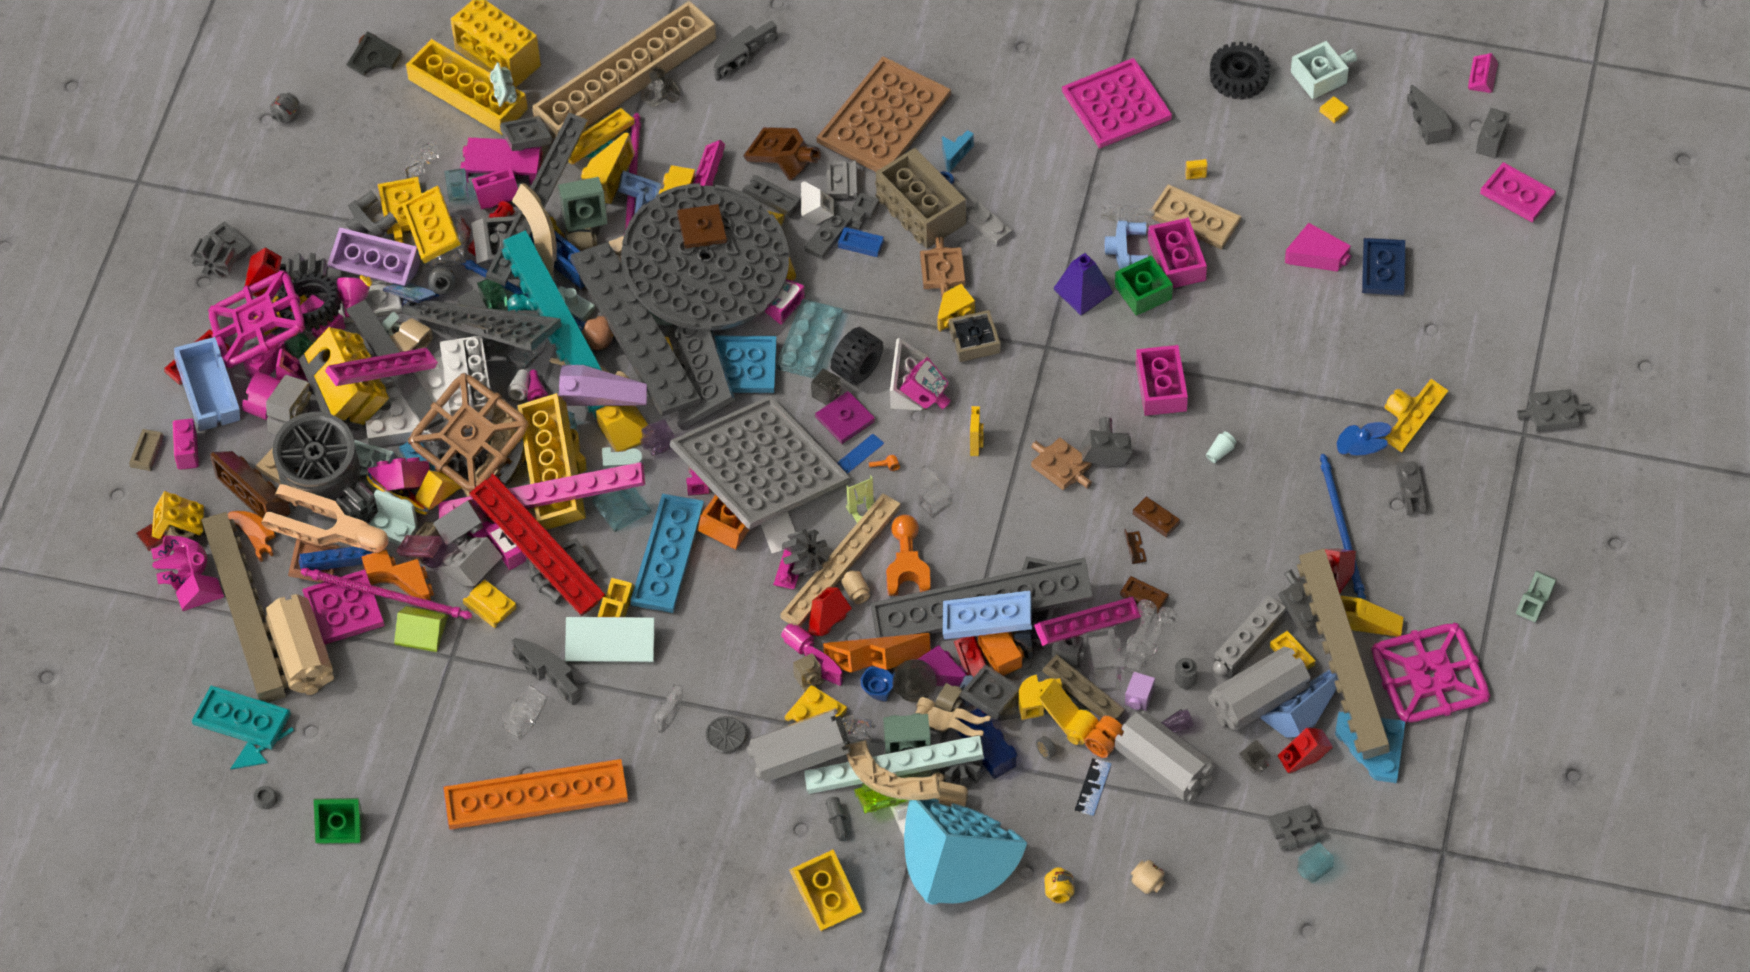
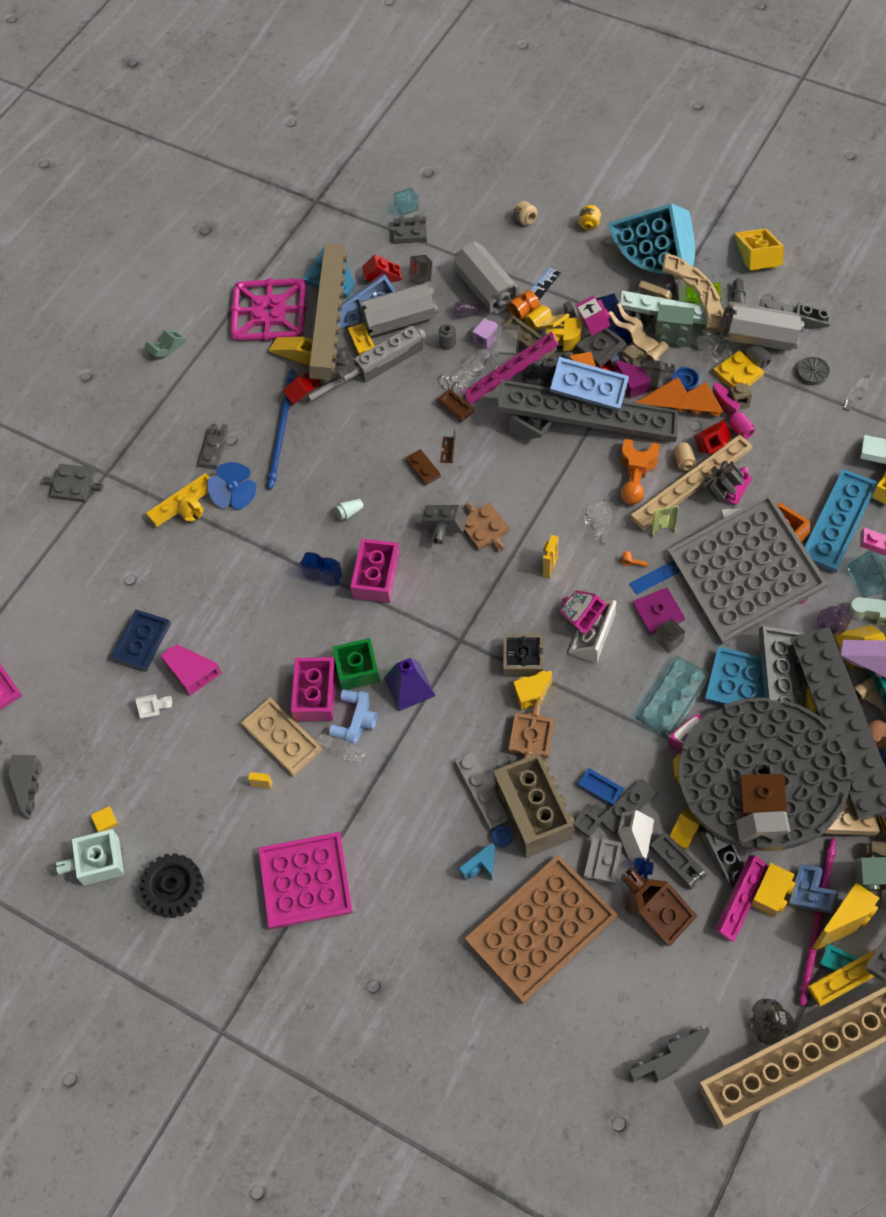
camera: 160 degrees left, 5 degrees up
(694, 191) = (764, 823): none -> light grey slope
(761, 800) = (812, 316): none -> dark grey slope
(798, 179) = (645, 867): none -> clear blue plate
(857, 355) = (637, 646): black tyre -> none
(1010, 714) = (593, 314): none -> dark pink brick
(1221, 369) = (319, 568): none -> clear blue brick
(1340, 209) = (151, 706): none -> white plate

